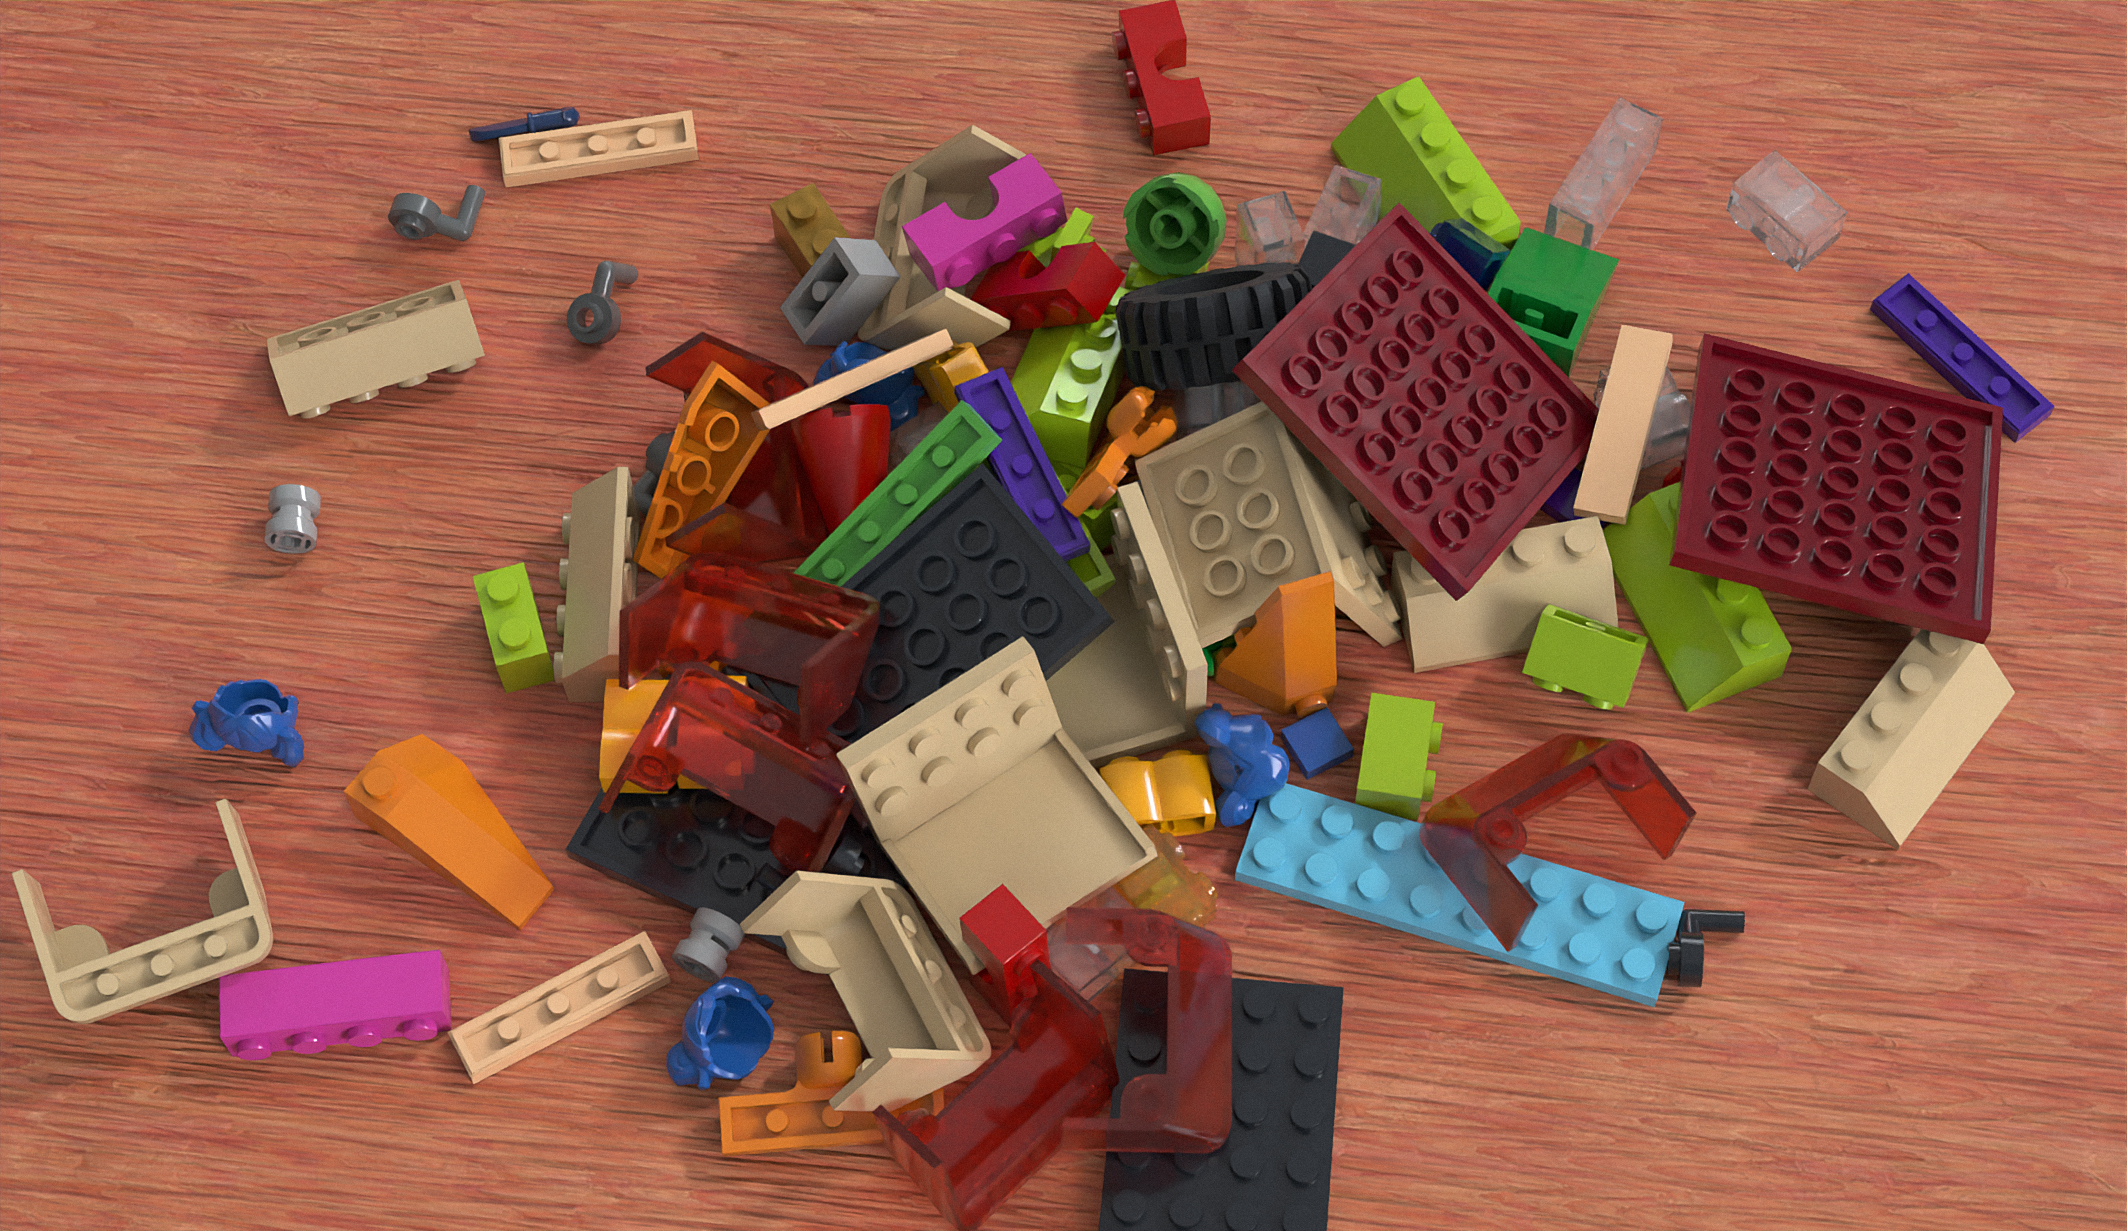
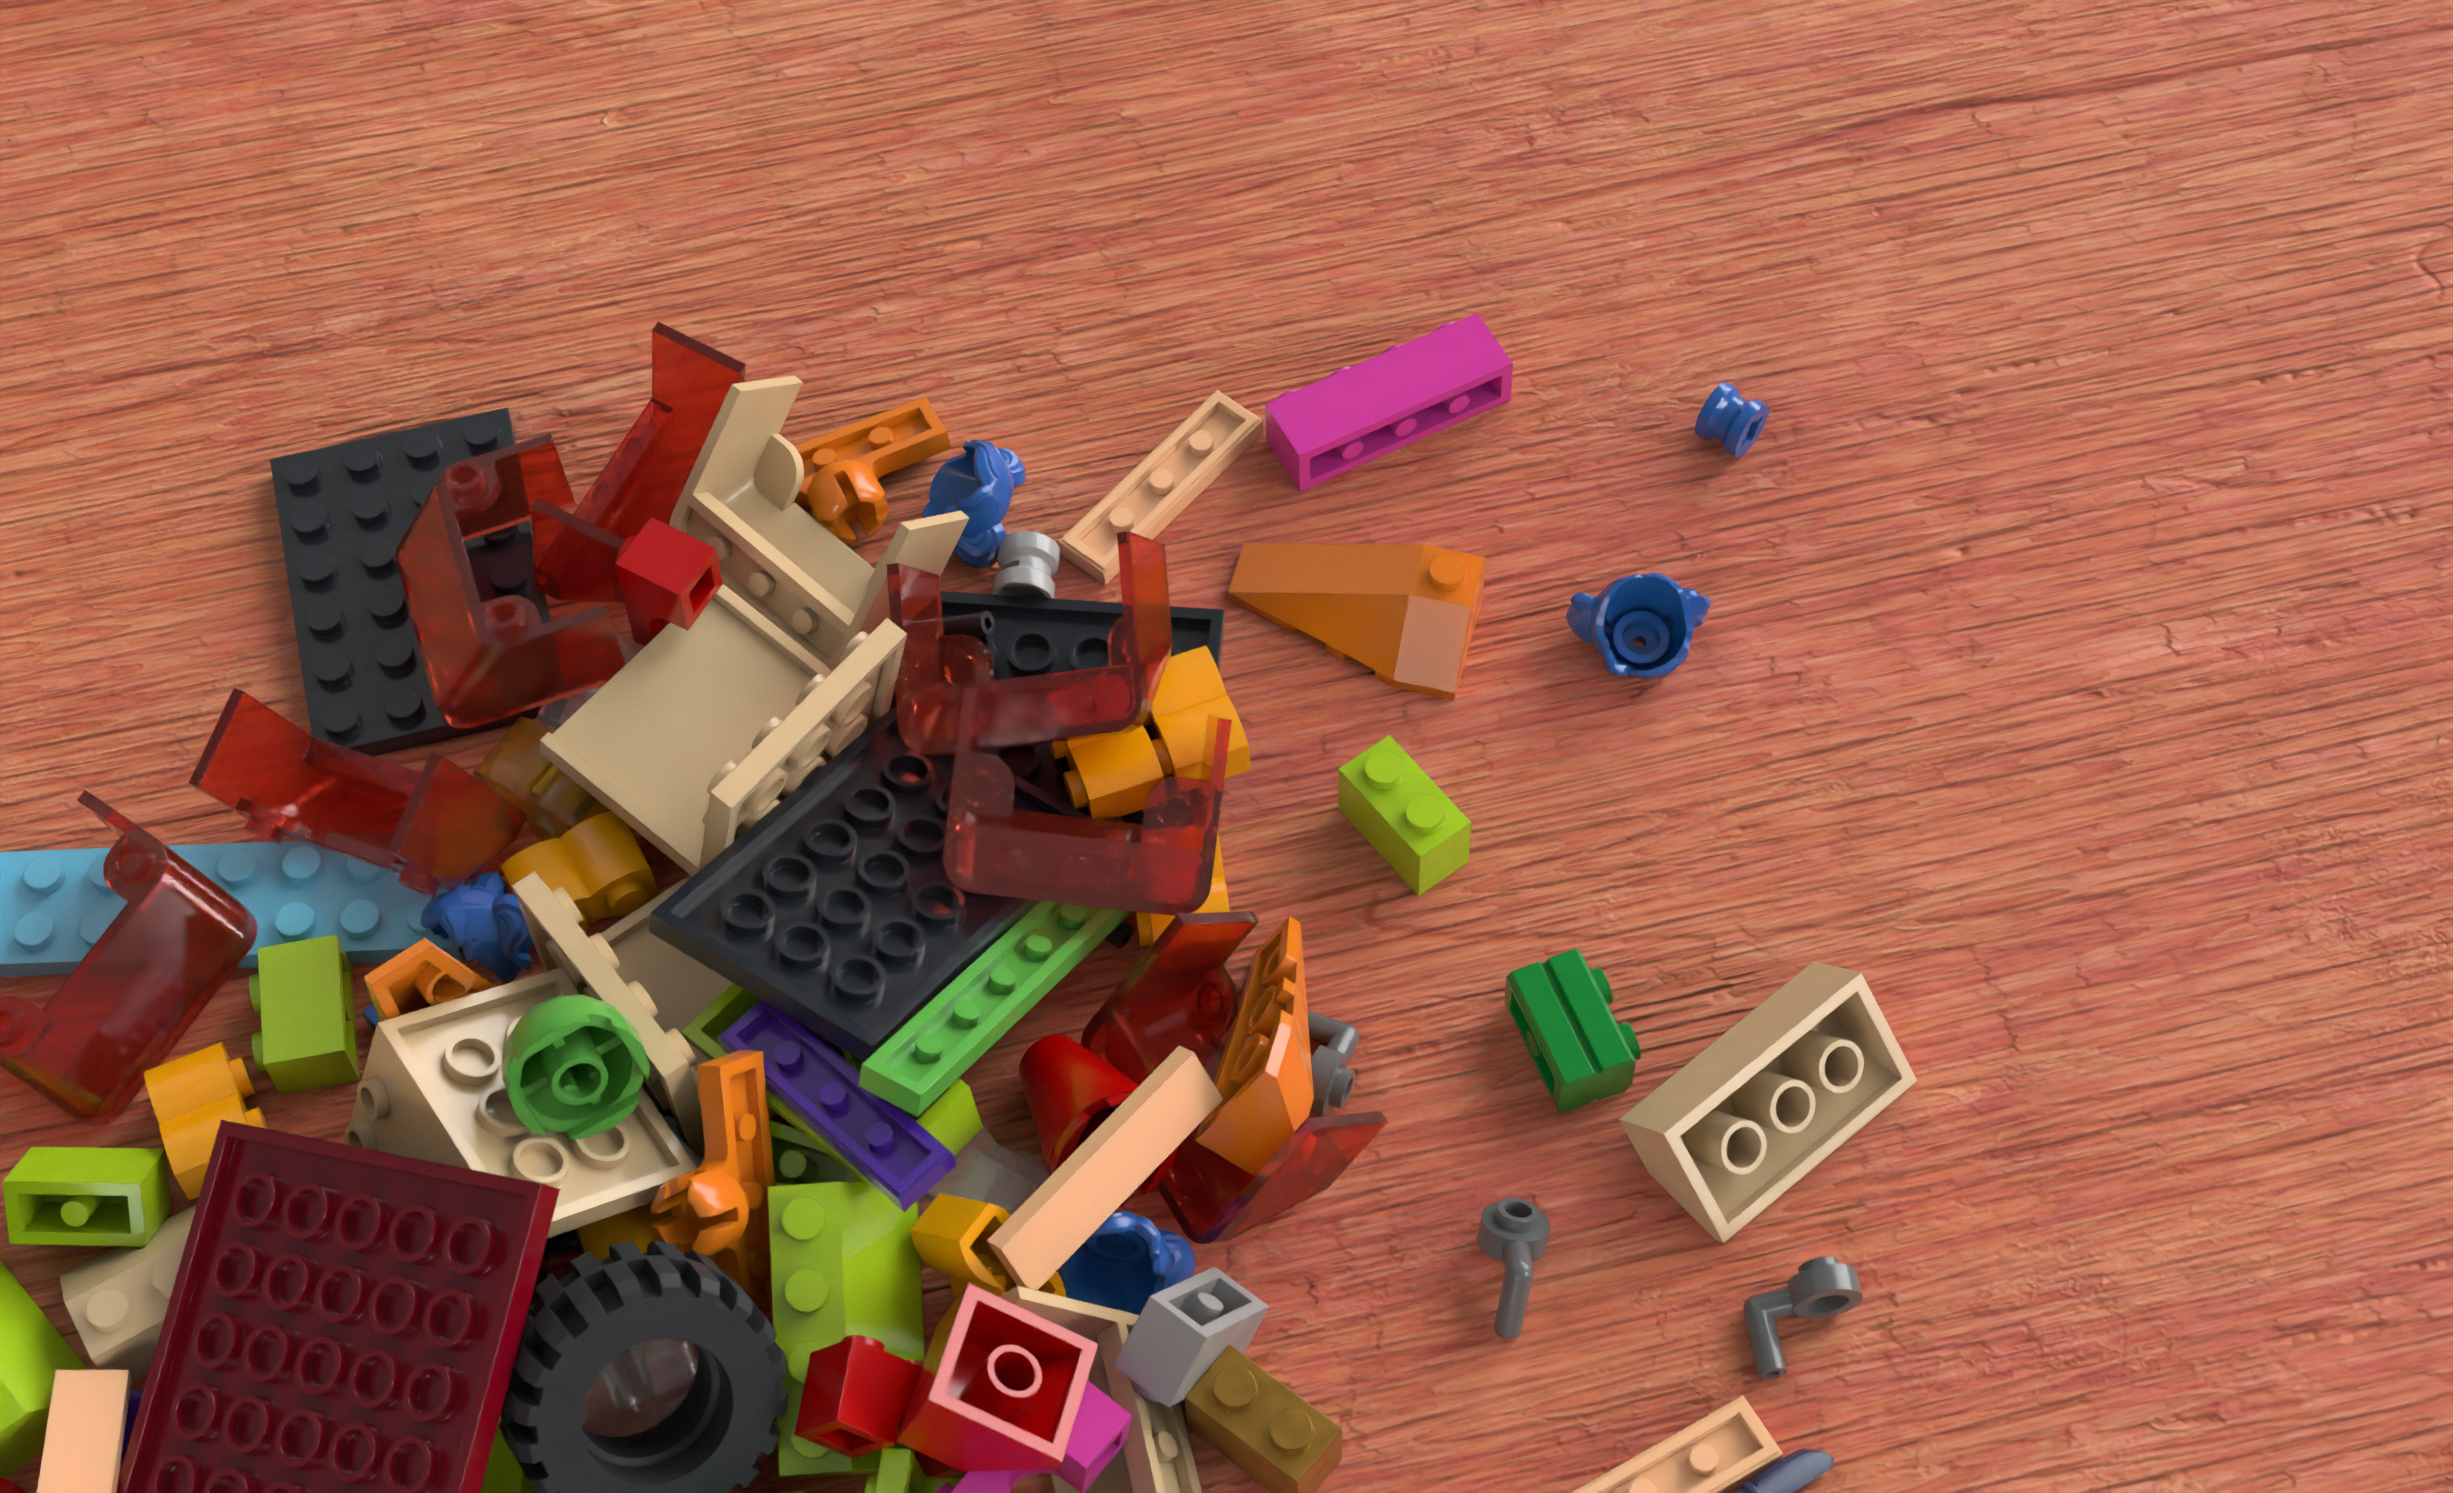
camera: 160 degrees right, 5 degrees down
(70, 883) = (1731, 419): none -> blue wheel
(94, 984) = (1595, 354): tan windscreen -> none
(292, 519) = (1735, 853): light grey wheel -> none
(480, 435) = (1571, 1029): none -> green brick
(598, 583) = (1323, 882): tan slope -> none
(984, 244) = (997, 1387): none -> red slope
(1200, 510) = (573, 1066): none -> bright green cylinder
(1290, 877) = (418, 824): none -> clear red windscreen
(1487, 694) = (192, 1100): none -> light orange brick

